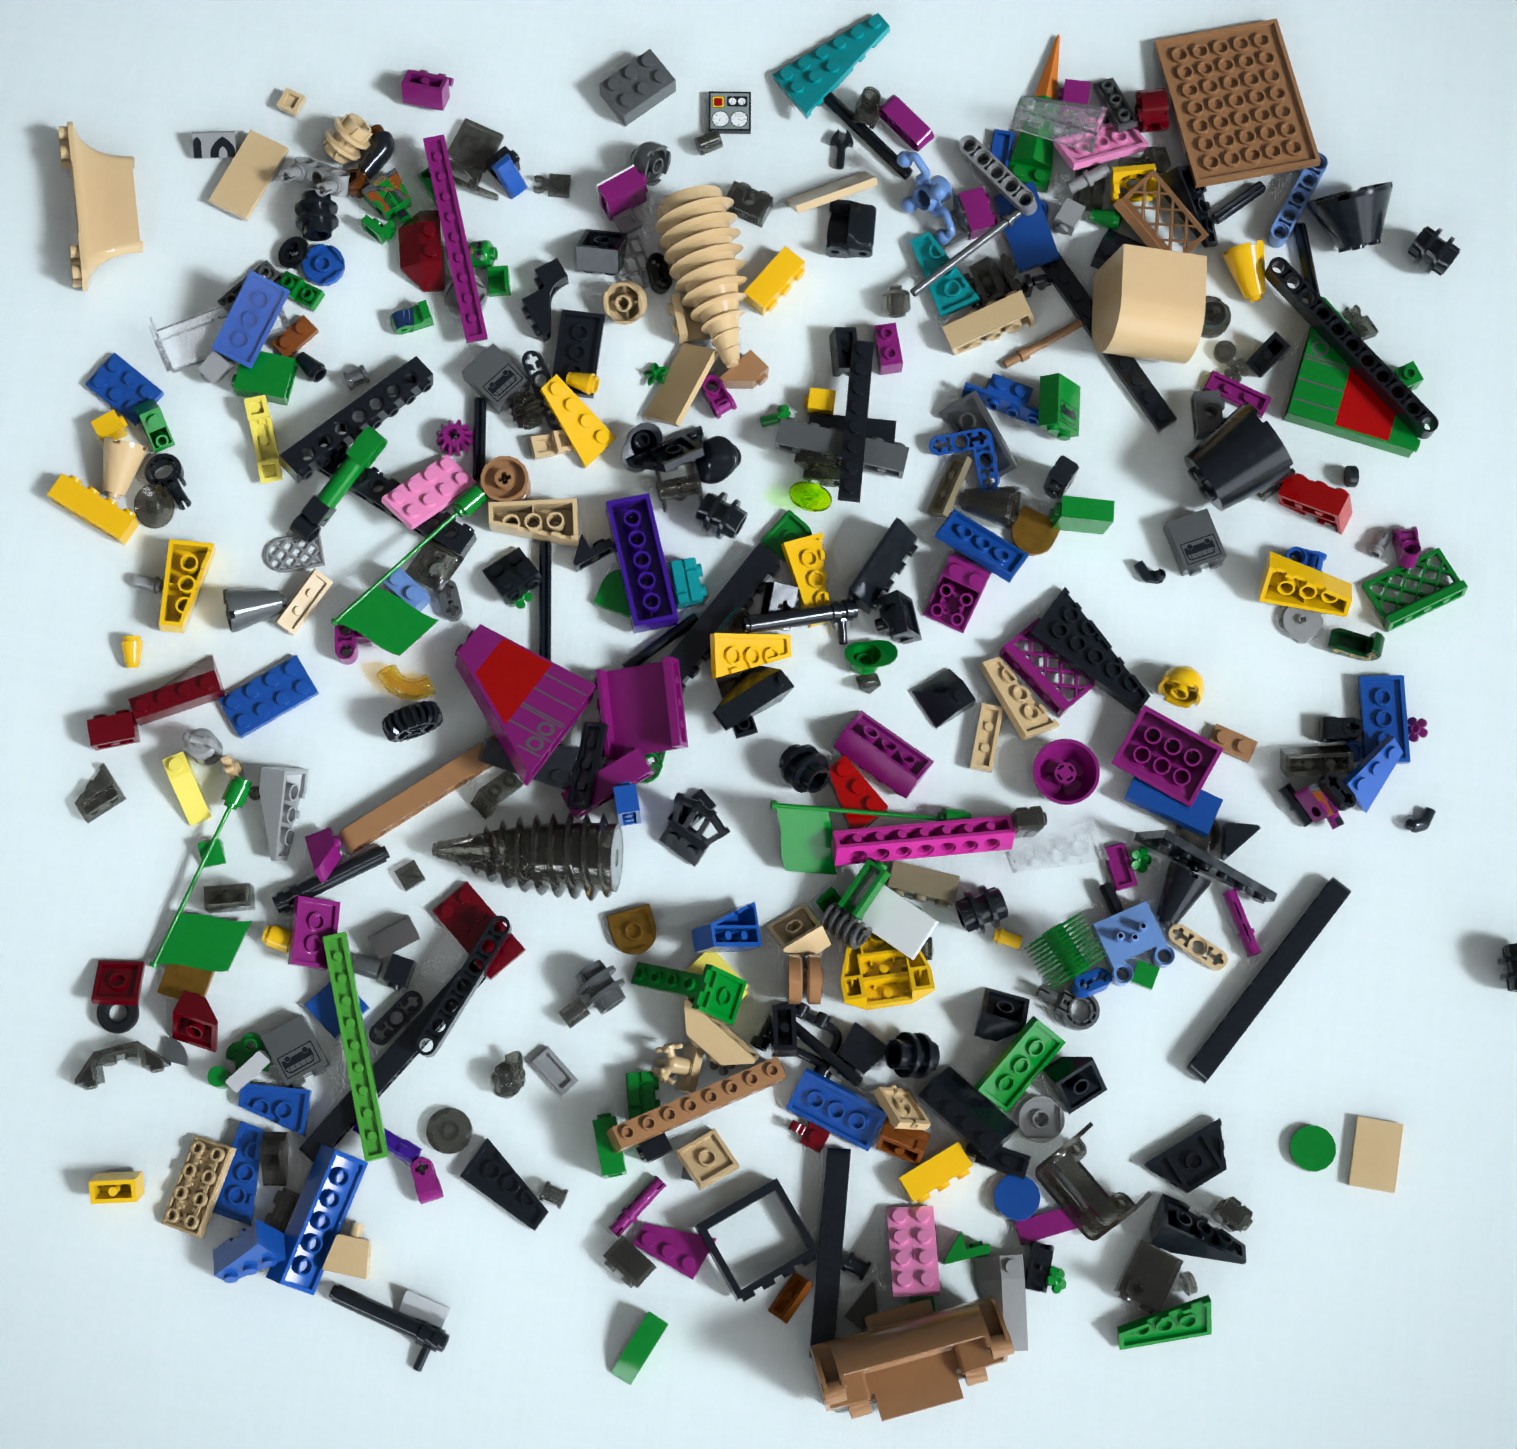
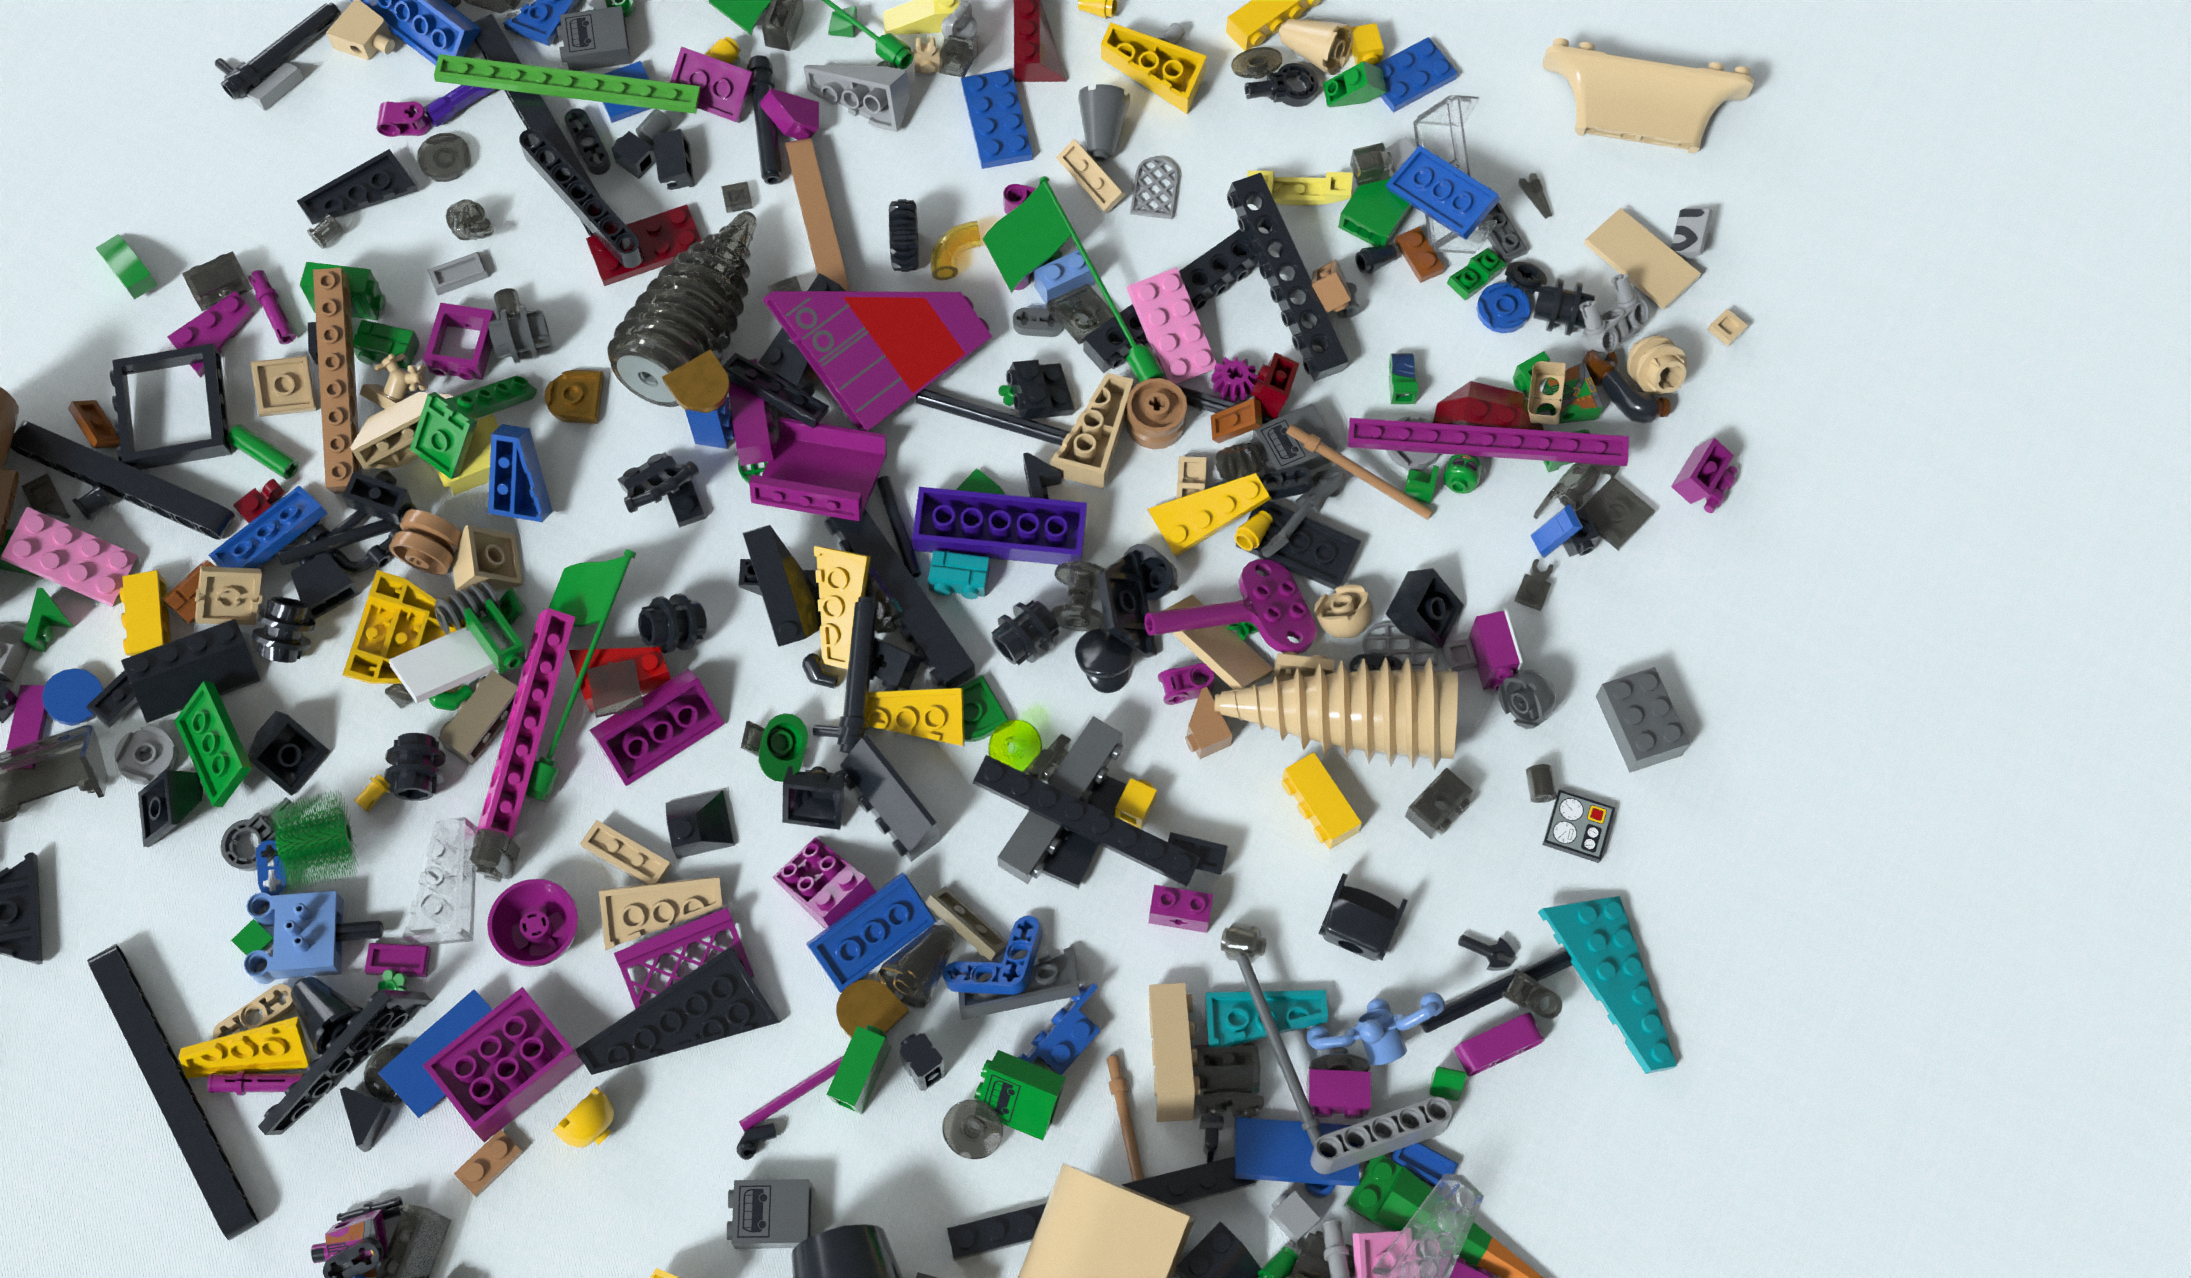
camera: 110 degrees right, 10 degrees down
(209, 268) = (1535, 193): none -> clear smoke piece
(228, 738) = (956, 56): none -> clear smoke panel
(235, 383) = (1371, 163): none -> clear smoke brick
(322, 506) = (1192, 215): green piece -> none
(354, 385) = (1331, 287): none -> medium nougat slope
(393, 195) = (1539, 372): none -> tan piece
(455, 402) = (1274, 384): none -> dark red brick
(493, 422) = (1236, 420): none -> dark orange plate
(499, 356) = (1313, 443): none -> medium nougat bar
(523, 342) = (1324, 485): none -> dark grey piece
(537, 306) = (1373, 519): black arch -> none
(594, 1035) = (465, 318): none -> magenta window
(619, 802) = (699, 384): none -> pearl gold tile
(639, 354) = (1268, 602): none -> magenta piece
(766, 1151) = (263, 451): none -> green piece
(772, 419) = (1134, 744): green arm -> none
(800, 658) = (815, 672): none -> black arm
(832, 192) = (1421, 908): tan tile -> none
(873, 784) = (615, 688): none -> clear smoke piece
(943, 149) = (1447, 1083): none -> green slope
(1090, 433) = (966, 1140): none -> clear smoke dish
(1121, 570) = (790, 1095): none -> magenta piece
(1224, 931) = (255, 1050): none -> yellow wing

